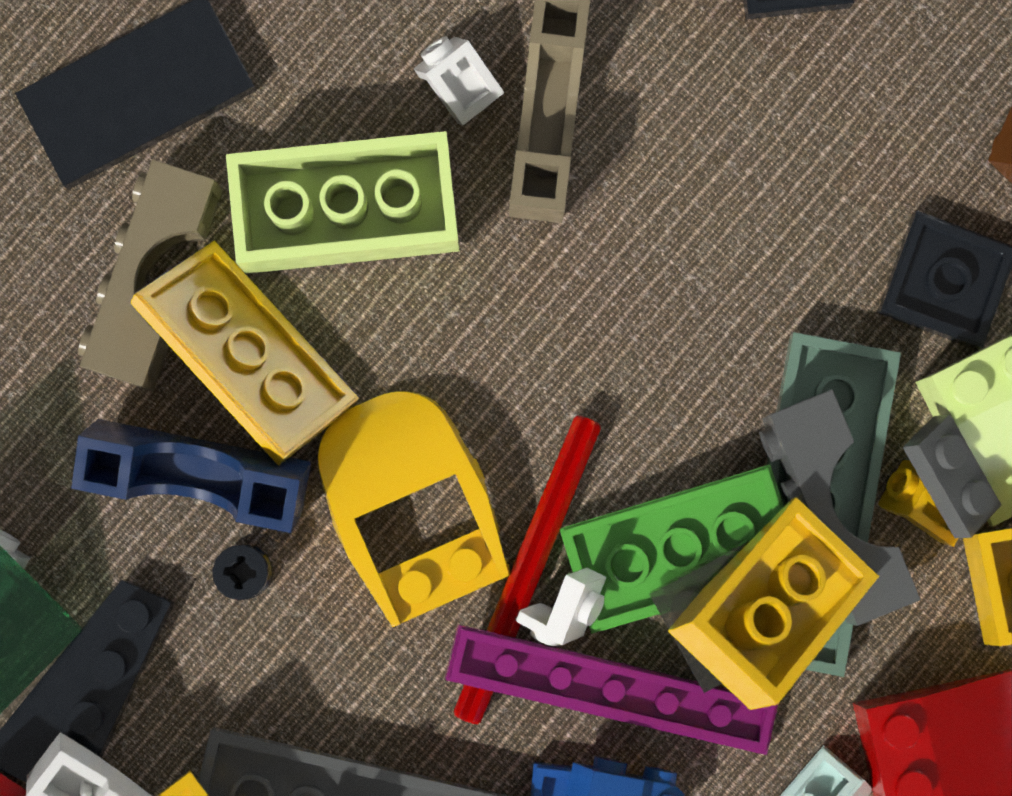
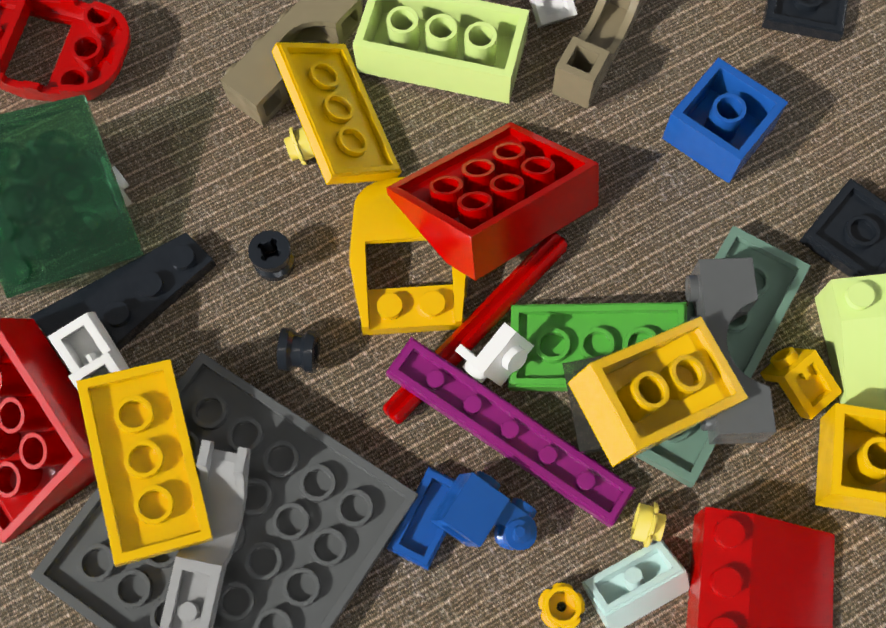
camera: 25 degrees right, 15 degrees down
(141, 461) = (264, 174): dark blue arch -> none
(212, 411) = (298, 145): none -> light yellow plate
(326, 682) = (298, 350): none -> black wheel
(493, 403) = (497, 197): none -> red slope
(742, 193) = (723, 120): none -> blue brick
(805, 739) = (648, 524): none -> light yellow plate
(952, 476) = (827, 358): dark grey plate -> none

